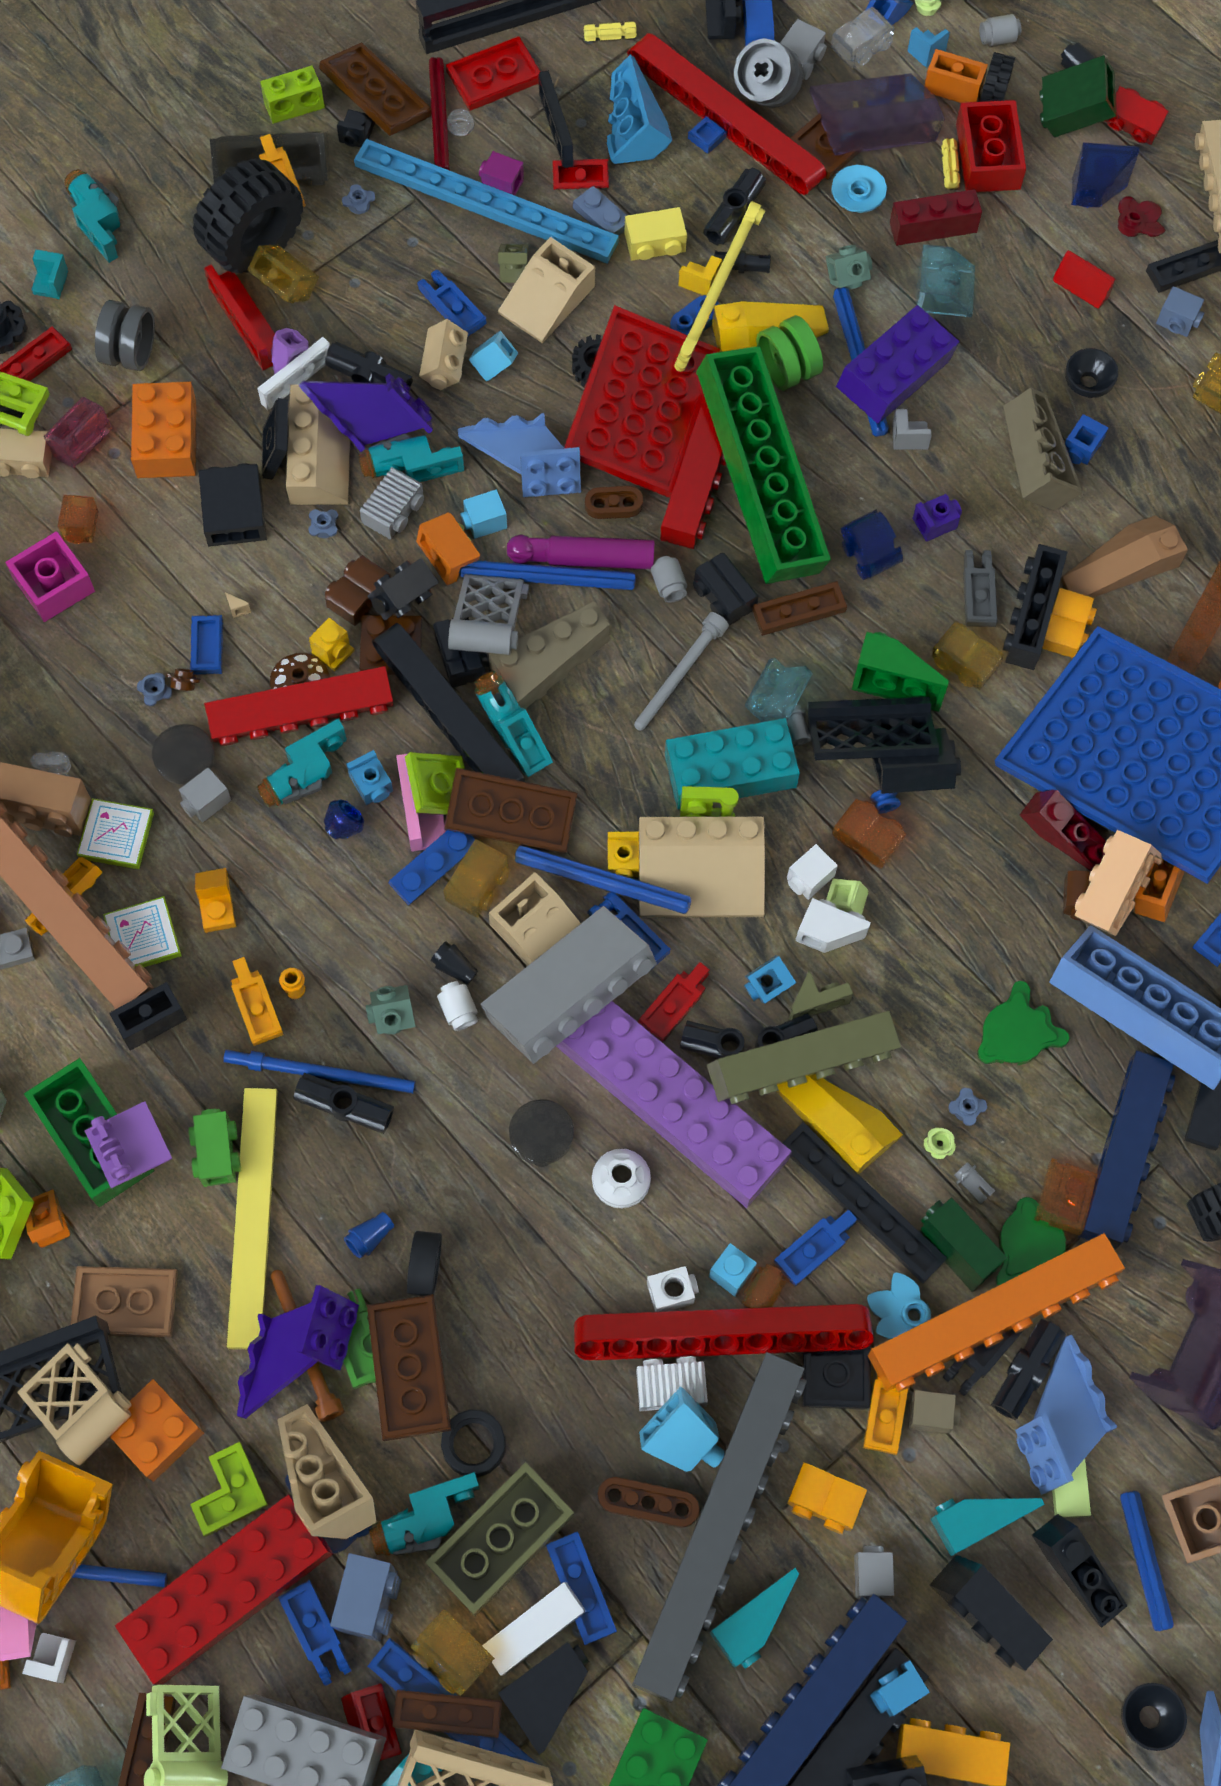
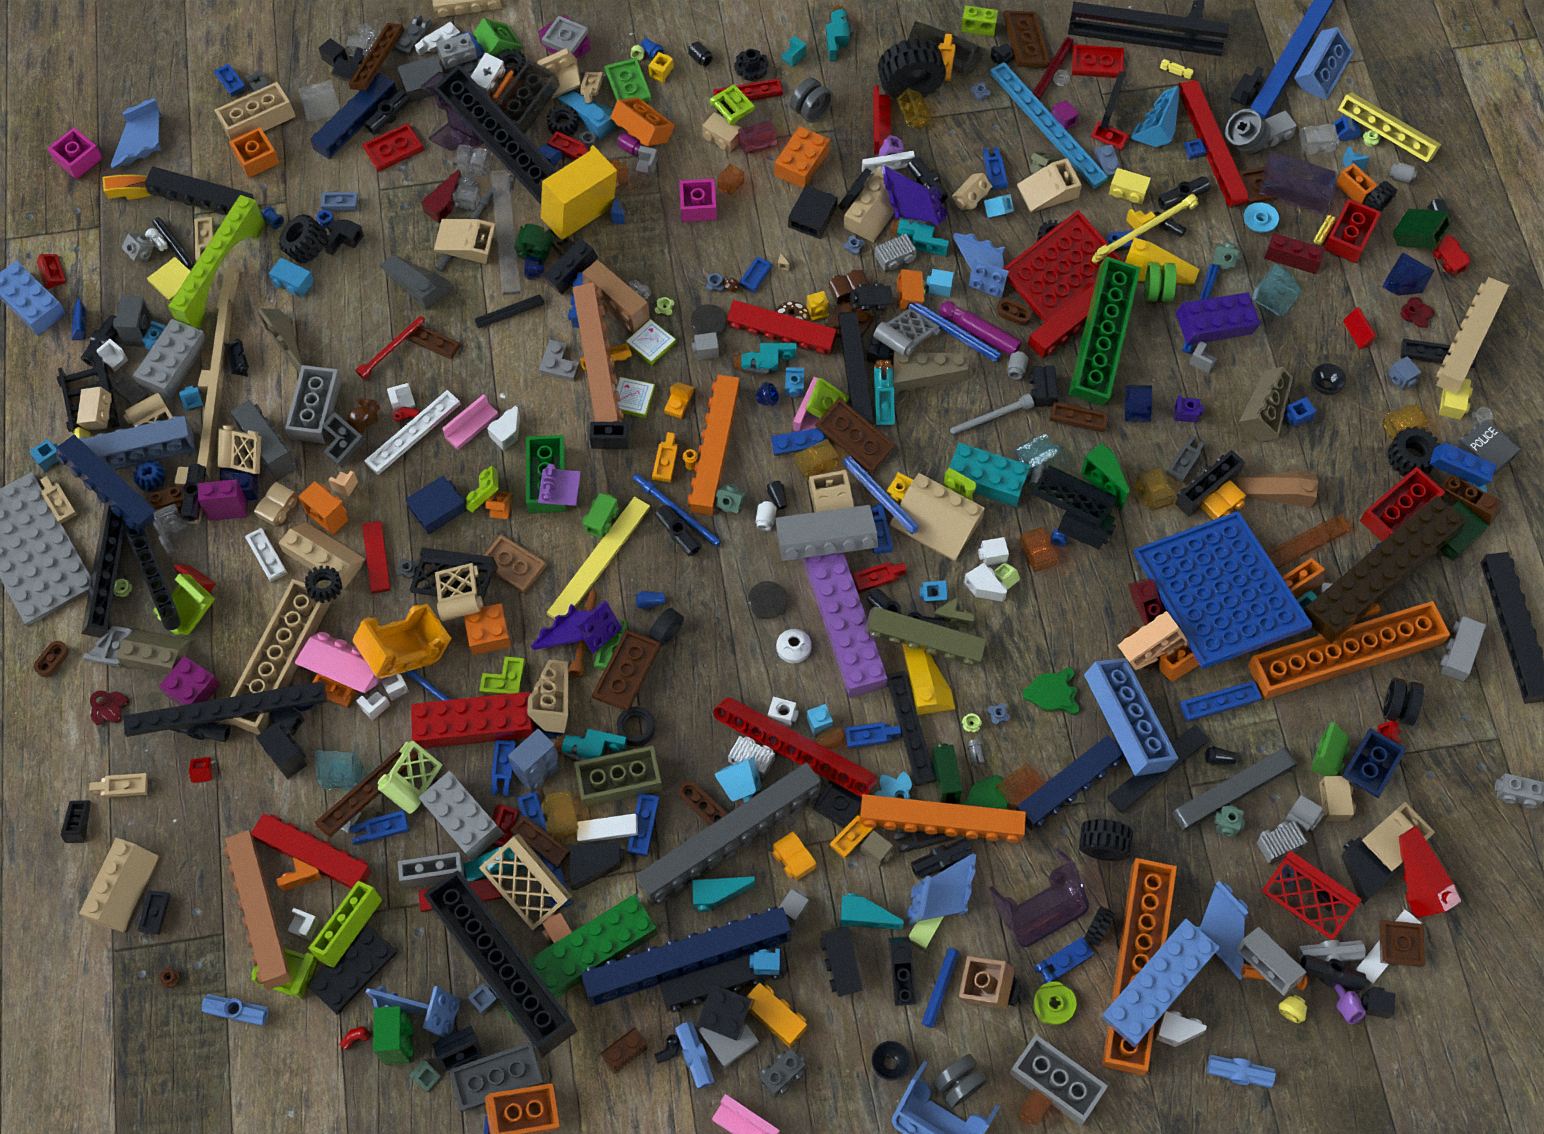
camera: 35 degrees right, 5 degrees down
(68, 1610) = (395, 686): none -> white panel
(101, 759) = (664, 301): none -> yellowish green plate
(315, 941) = (715, 444): none -> orange brick

